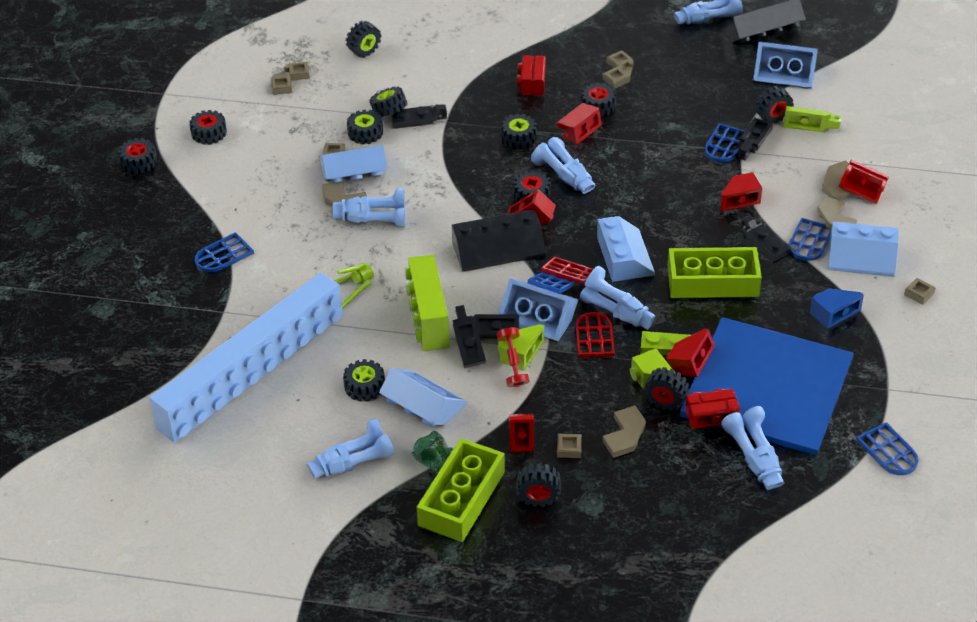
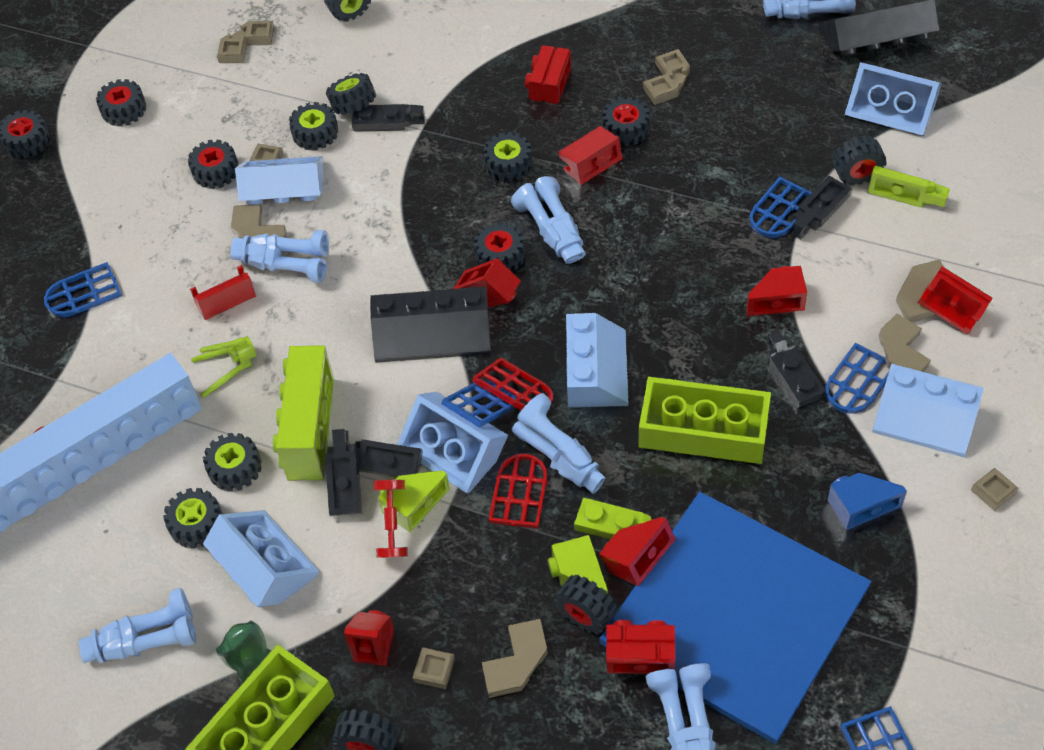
camera: 15 degrees right, 10 degrees up
(296, 159) = (213, 164): none -> black wheel
(336, 241) = (224, 295): none -> red hinge
(380, 342) = (240, 469): none -> black wheel

